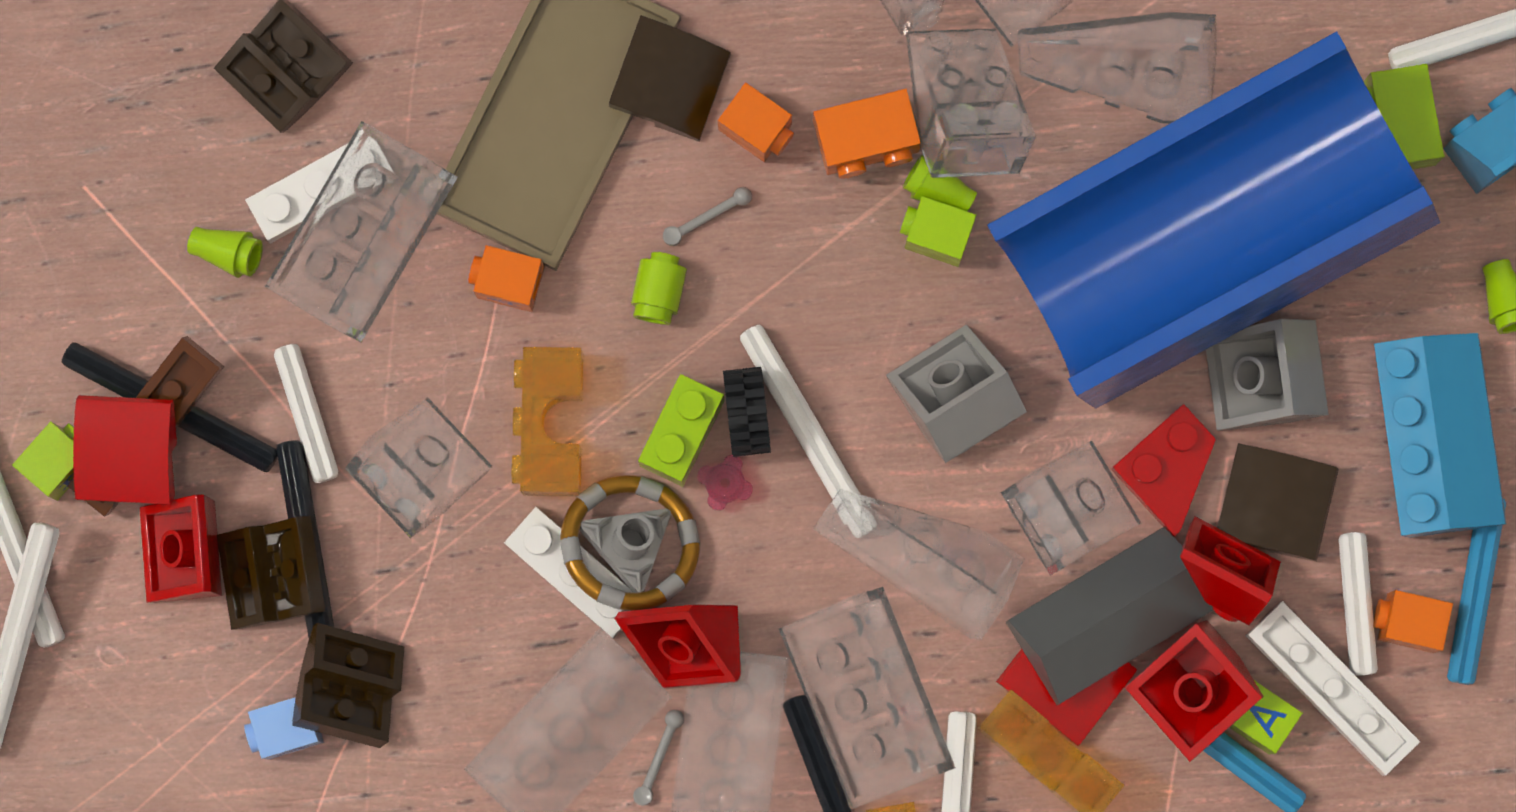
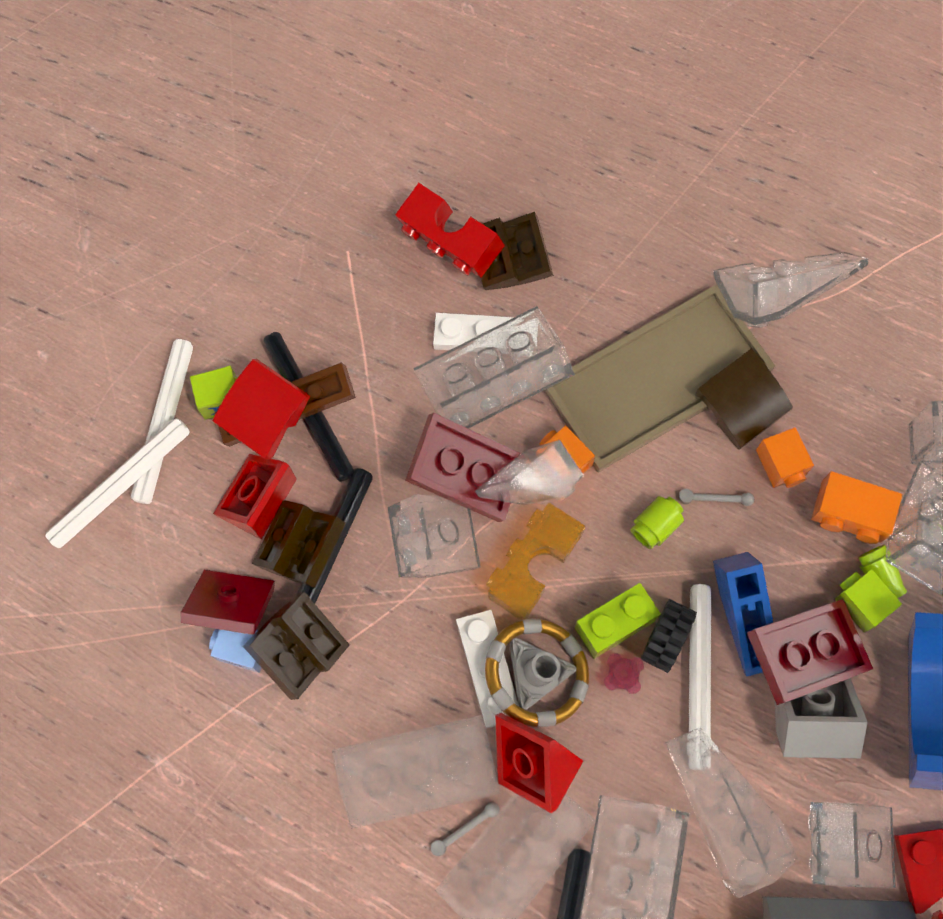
camera: 35 degrees right, 10 degrees down
(154, 89) = (470, 247): none -> red arch
(229, 250) = (407, 336): lime cone -> none
(238, 688) = (228, 602): none -> dark red plate
(306, 413) = (387, 461): white axle -> none
(404, 366) = (456, 463): none -> plate
(488, 328) = (534, 477): none -> clear slope
(818, 327) = (745, 603): none -> blue slope
(908, 330) = (809, 651): none -> plate

